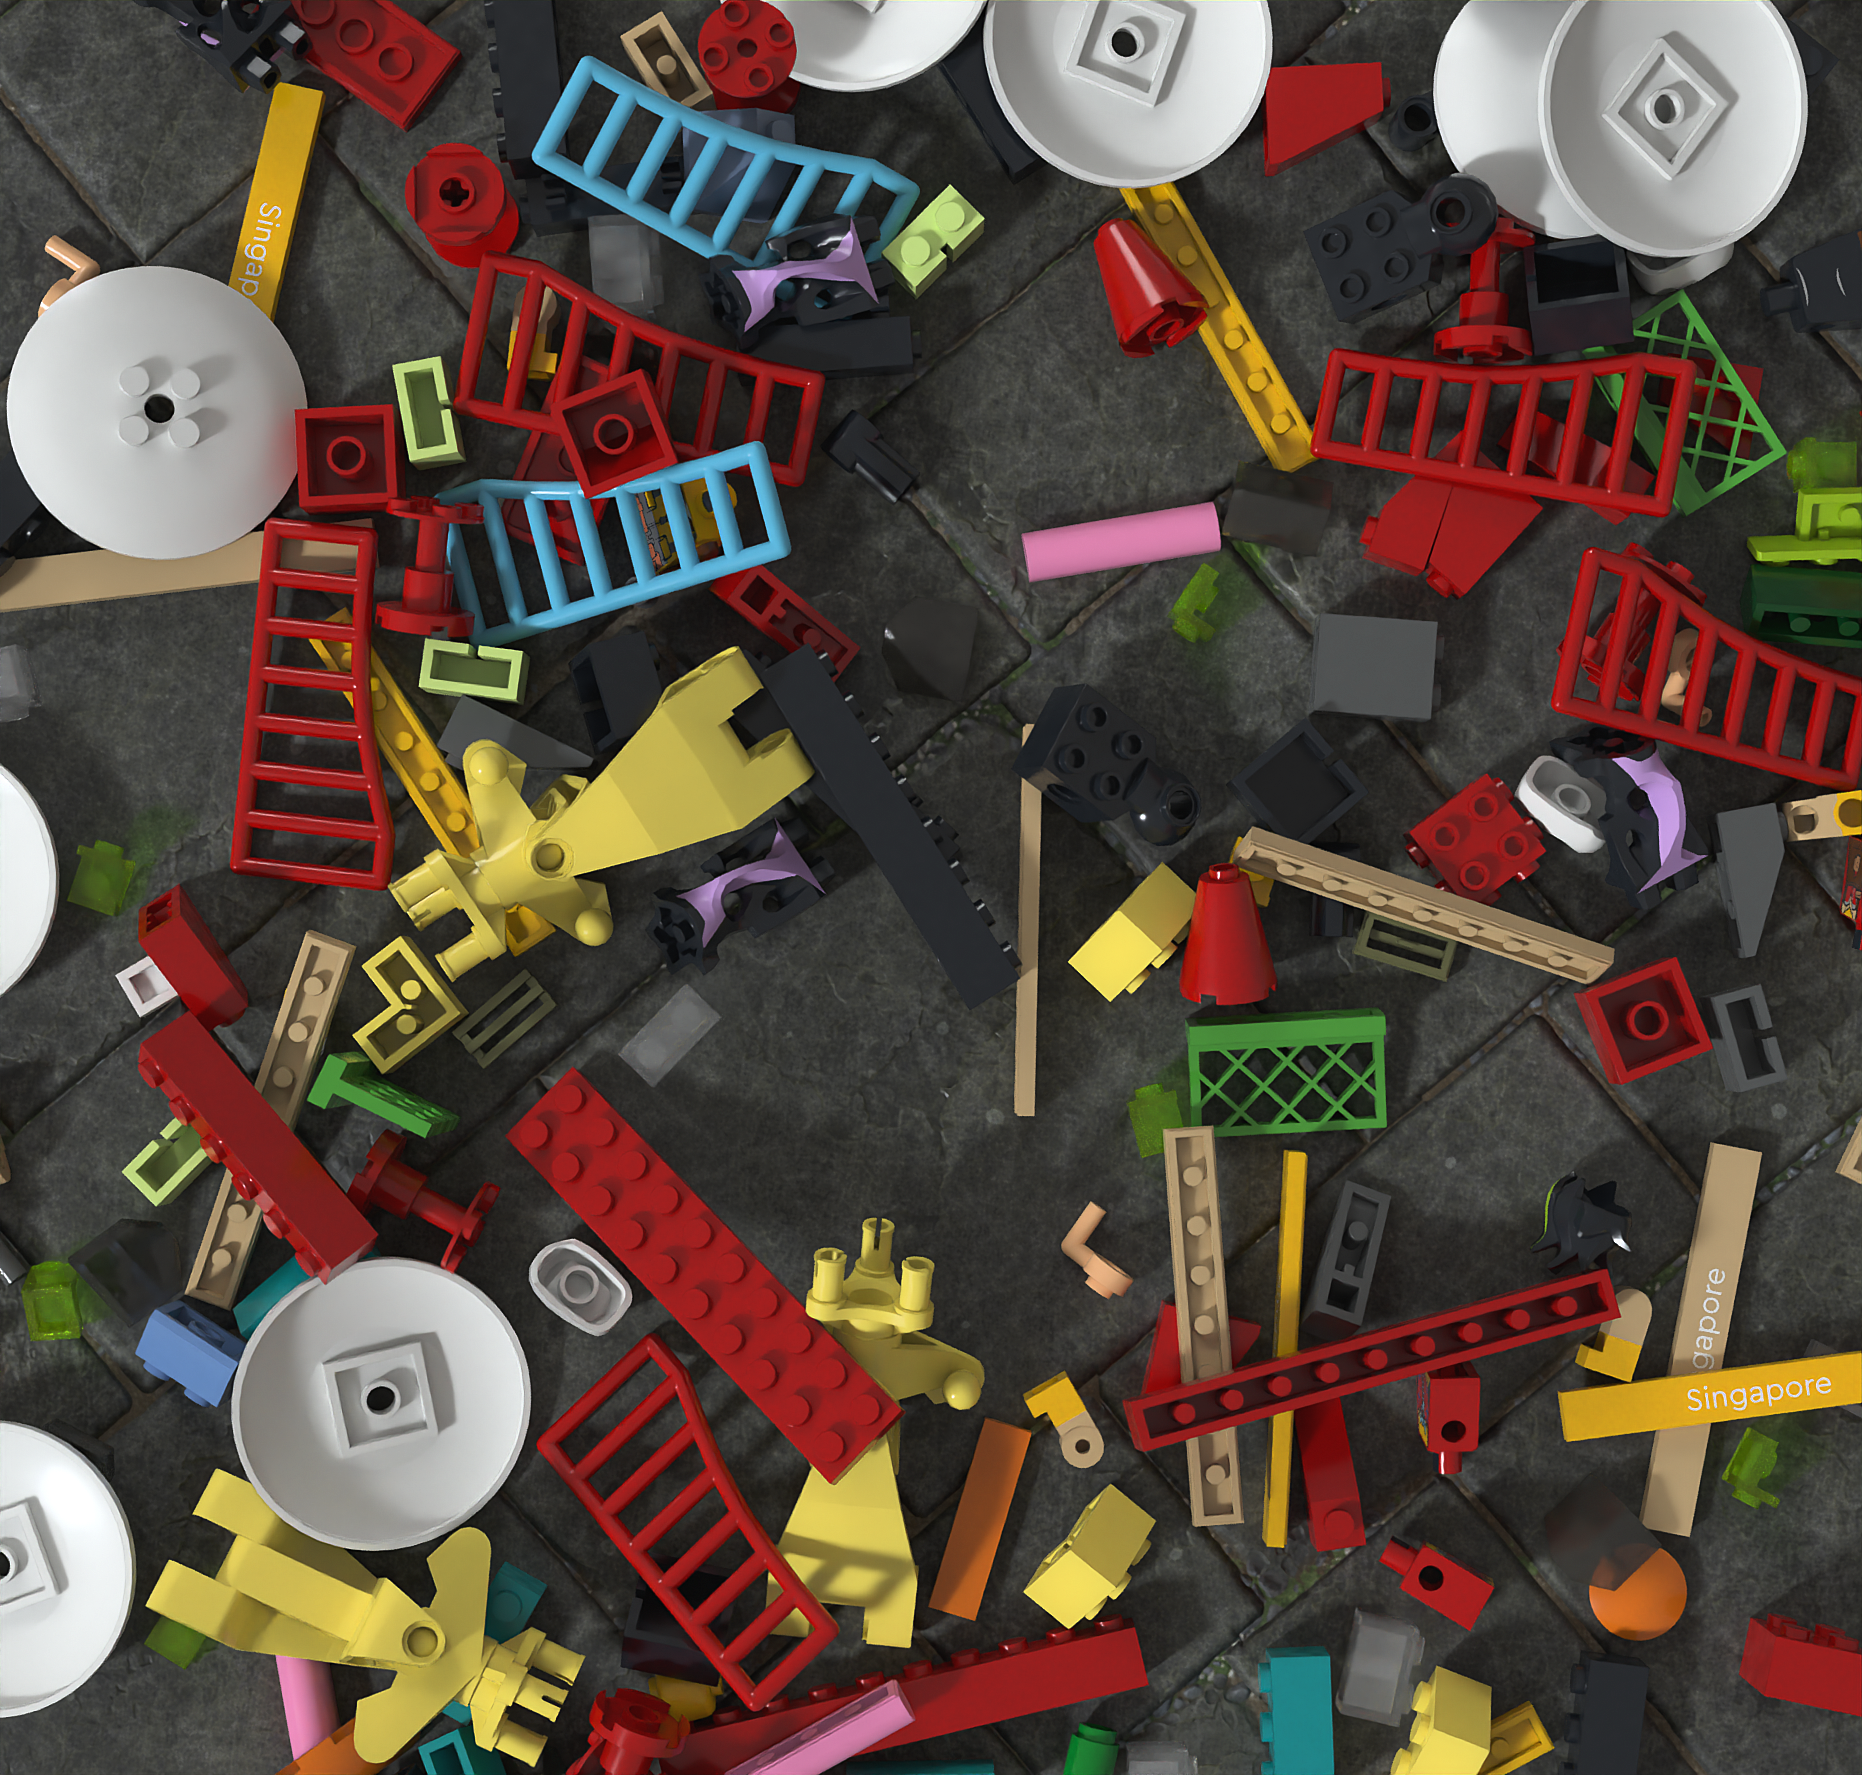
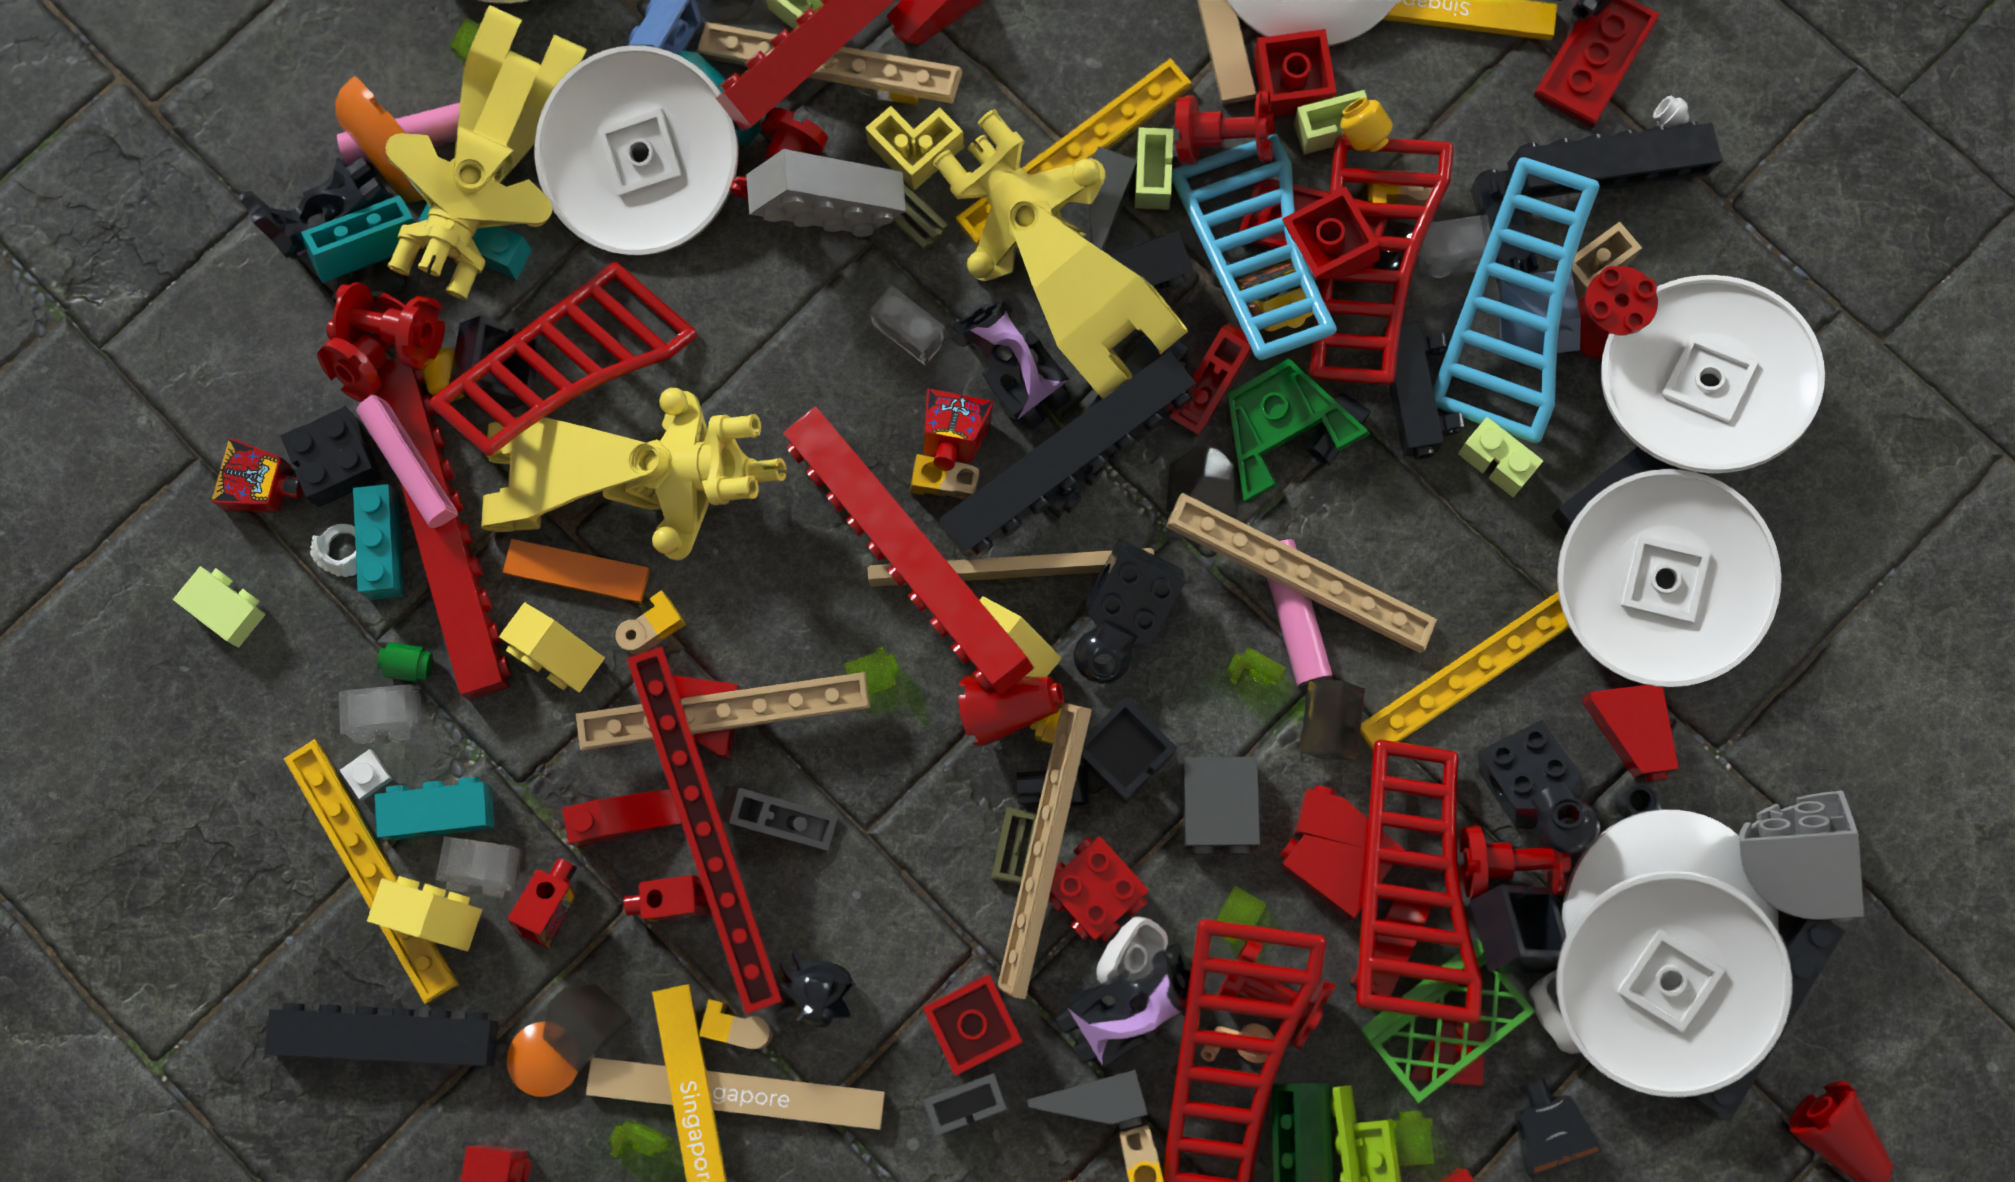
camera: 90 degrees right, 10 degrees down
(353, 1080) = (850, 113): bright green fence -> none
(360, 731) = (1139, 92): red bar -> none
(452, 367) = (1366, 125): none -> yellow head
(461, 204) = (1484, 124): red piece -> none
(485, 1136) = (825, 193): none -> light grey brick
(580, 1286) = (725, 277): white piece -> none
(705, 1276) = (735, 354): red plate -> none
(746, 297) = (1472, 379): black hips -> none
(828, 982) = (955, 427): none -> red torso
(841, 538) = (1276, 410): none -> green wing
(895, 1002) = (956, 483): none -> leg
(1007, 1059) = (909, 552): none -> red brick
(1074, 529) = (1301, 573): none -> tan tile
(1104, 1275) = (757, 642): light nougat plate -> none
(1145, 290) = (1482, 611): red cone -> none
(1284, 1342) = (716, 776): yellow tile -> none
(1293, 1031) = (945, 763): bright green fence -> none
(1521, 660) = (1241, 909): none -> clear neon green bracket

